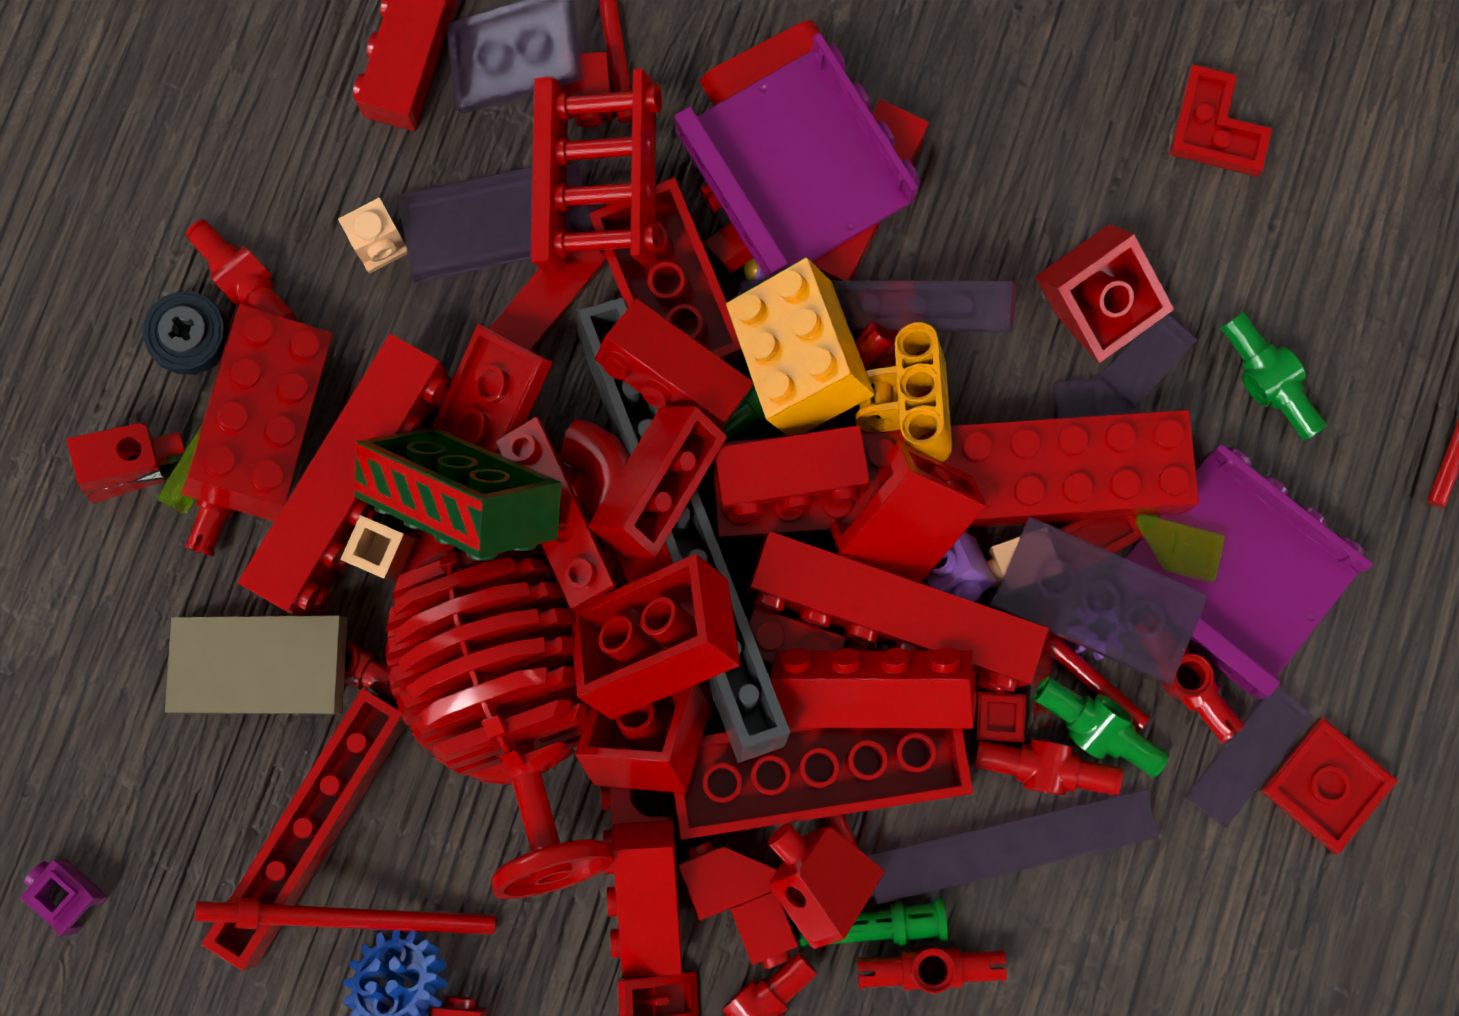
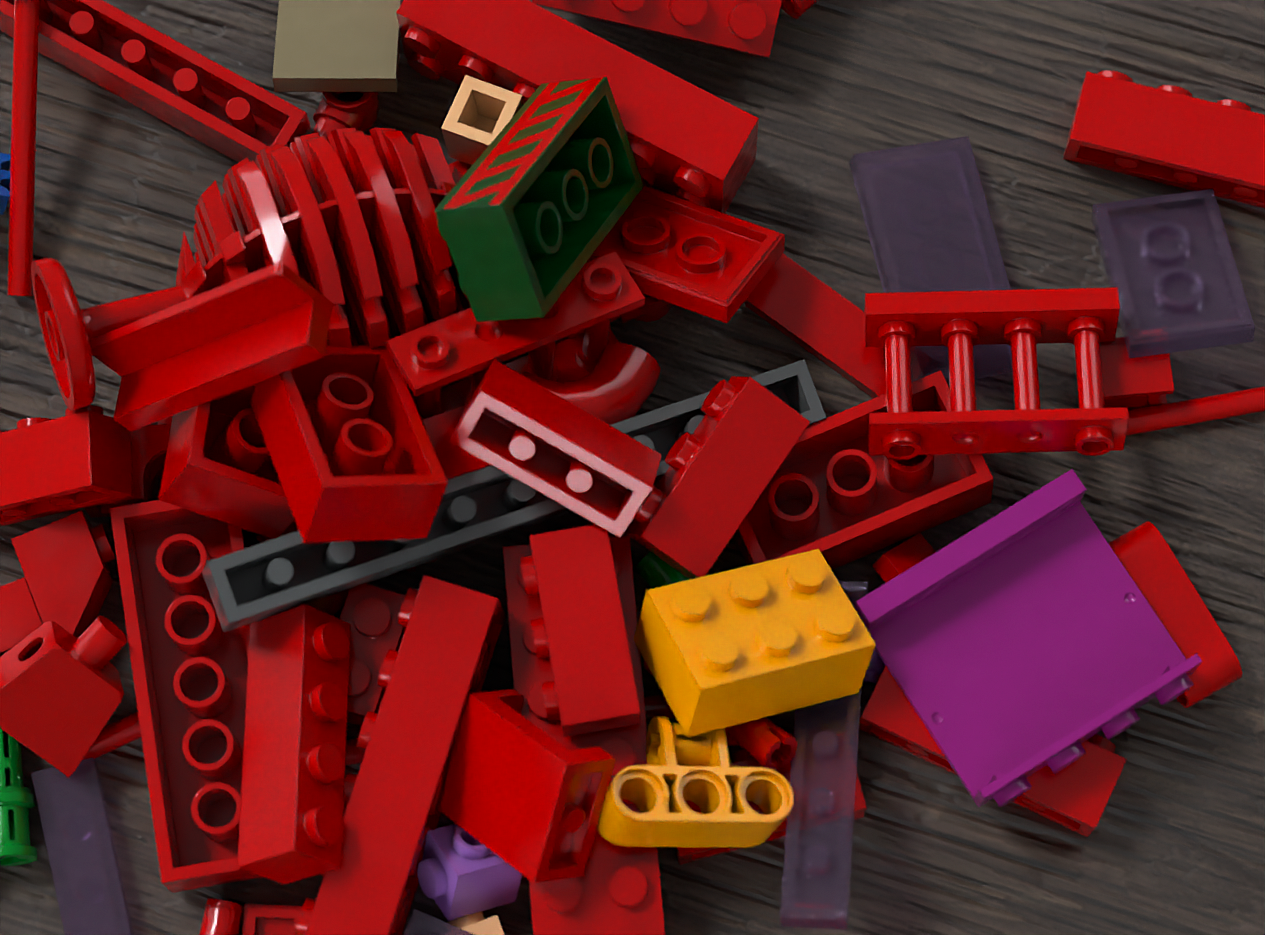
camera: 90 degrees right, 5 degrees down
(373, 235) = (910, 105): light nougat brick -> none
(576, 738) = (214, 344): none -> red panel

